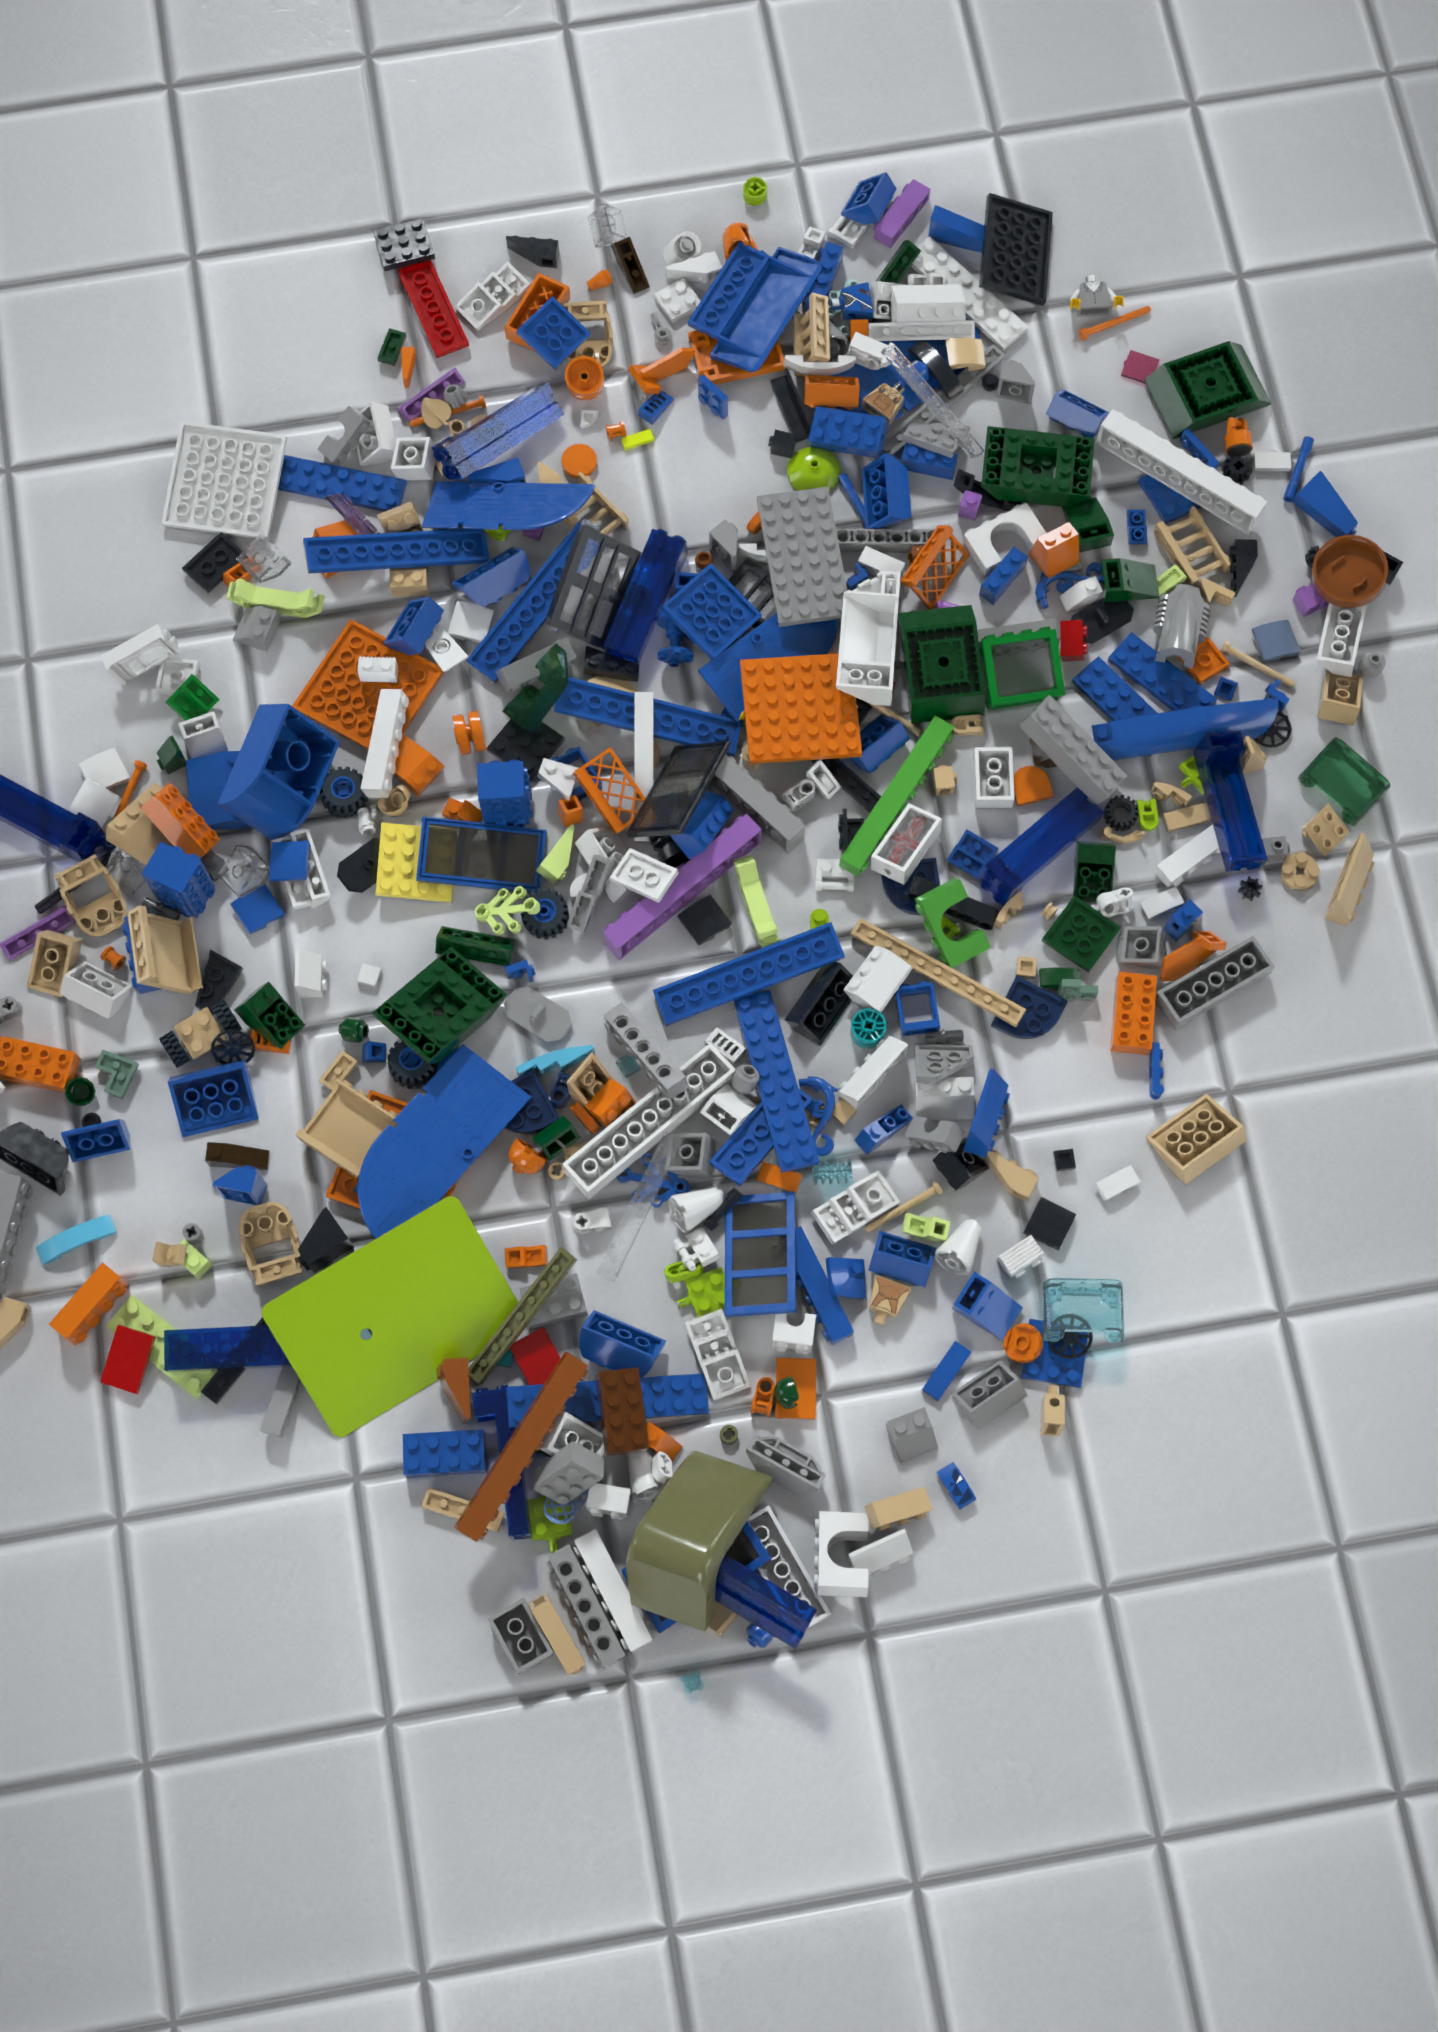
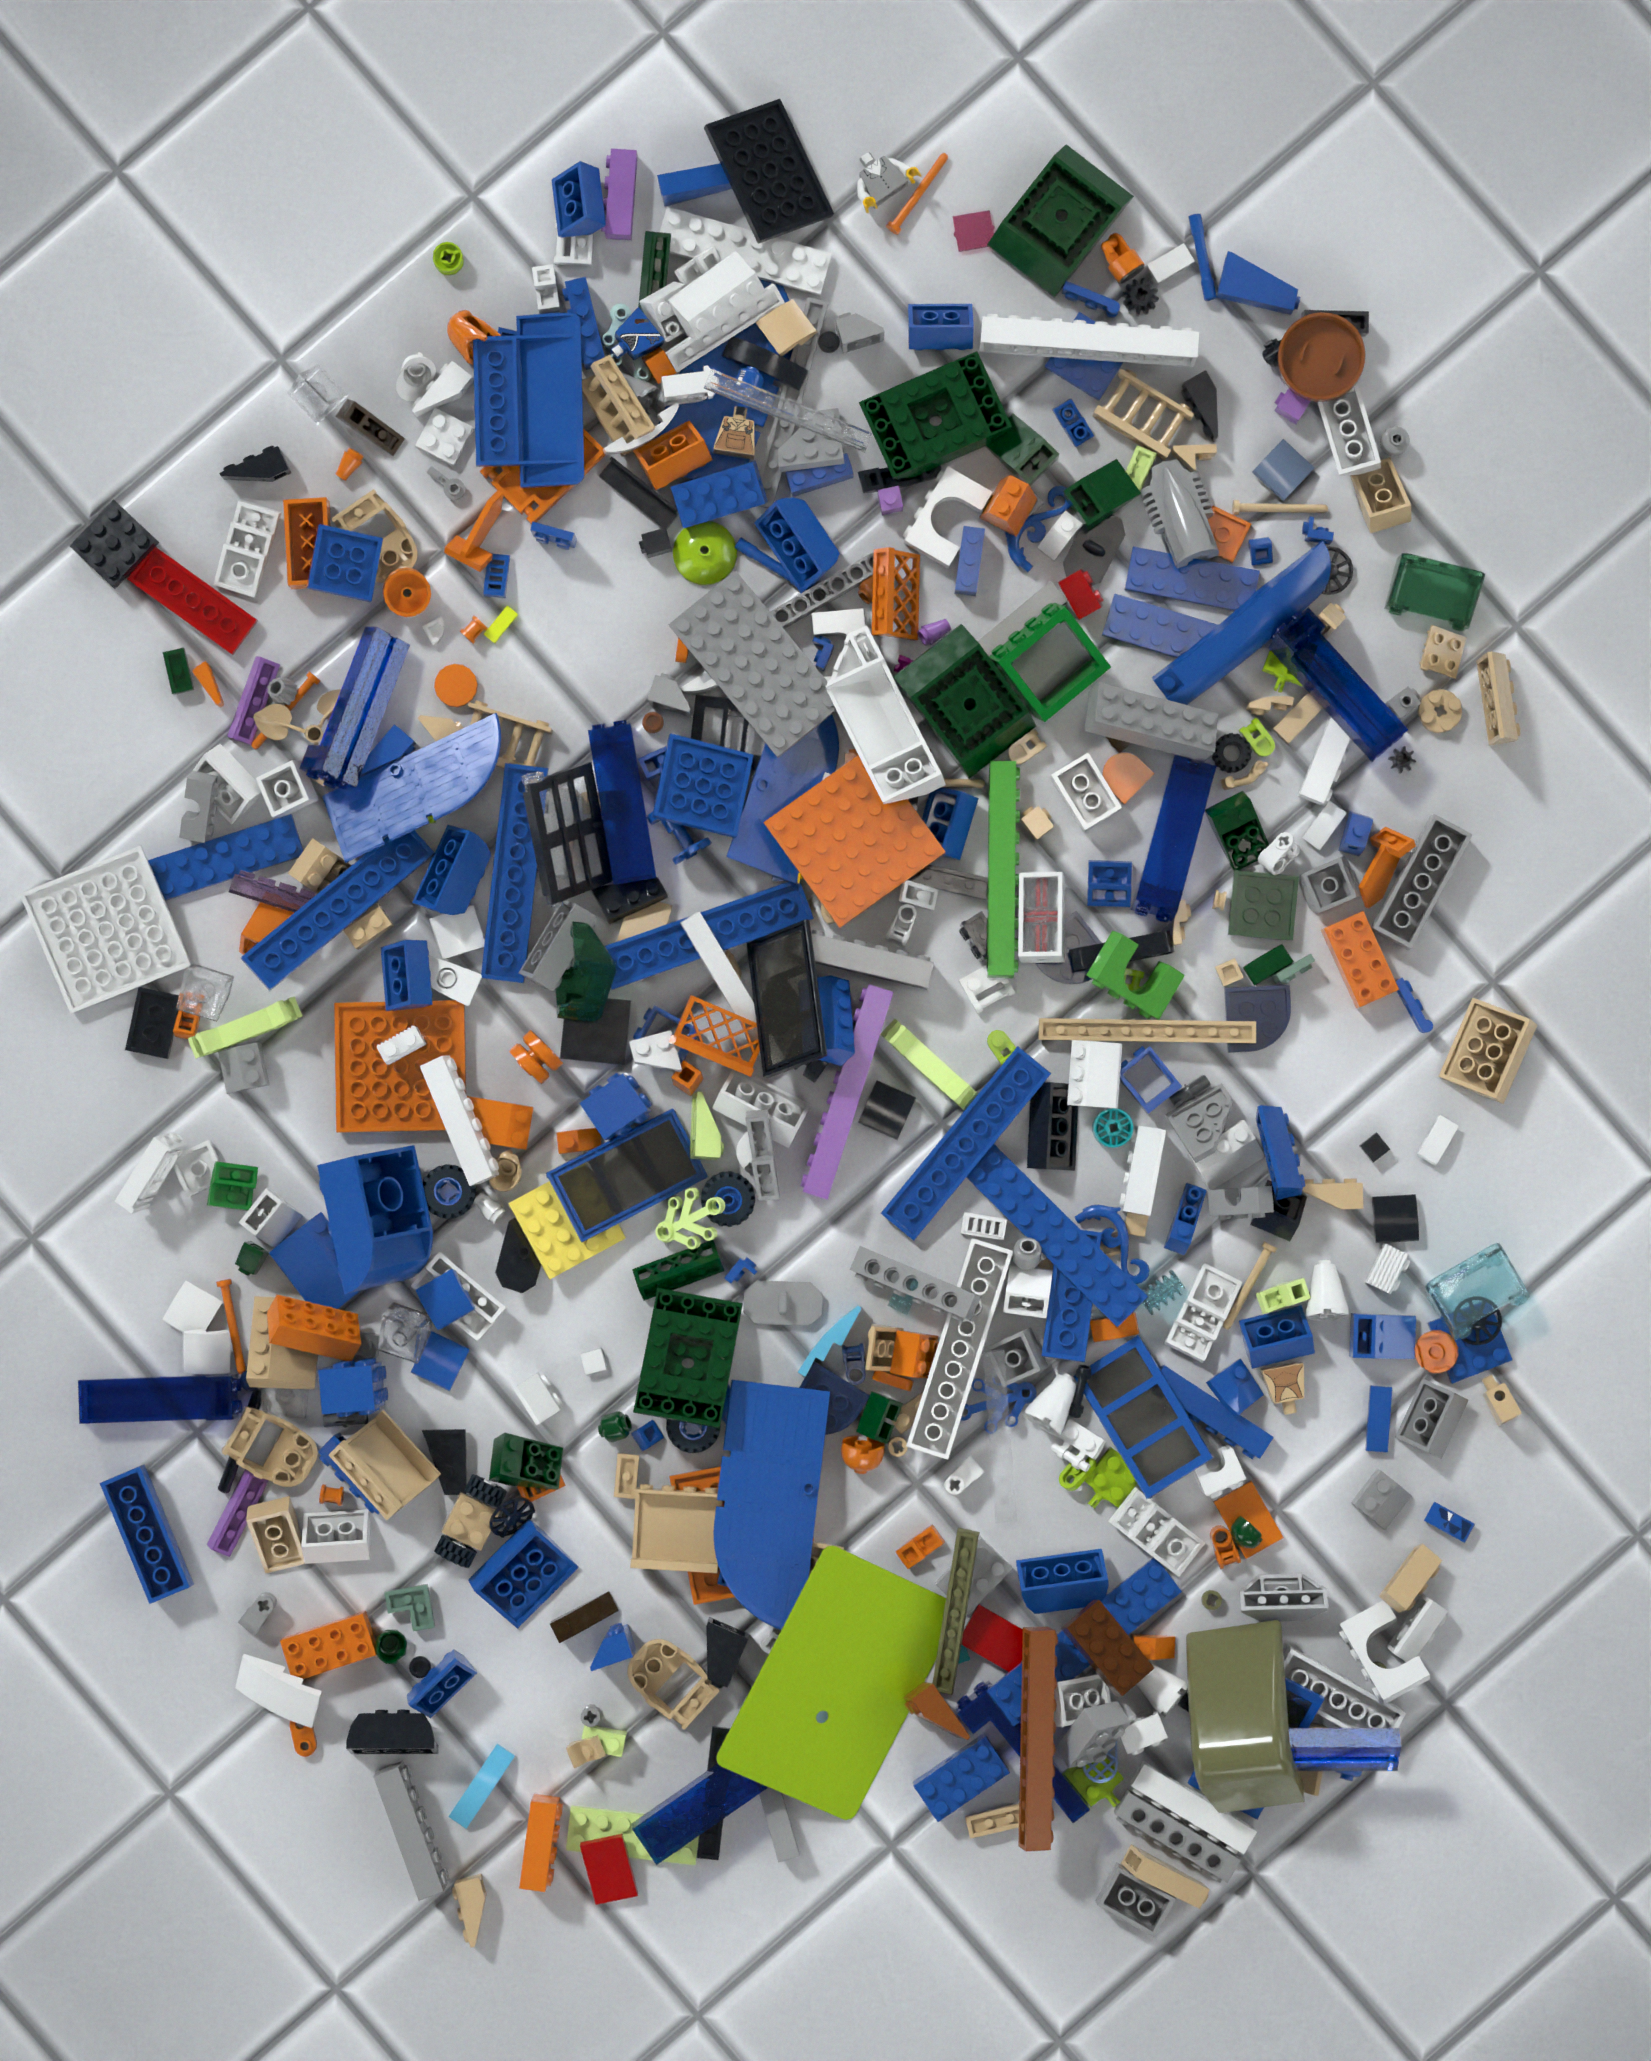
camera: 30 degrees left, 15 degrees up
(644, 875) = (808, 1110): white plate -> none
(662, 1467) = (1173, 1673): white beam -> none
(698, 1685) = (1313, 1838): clear light blue plate -> none

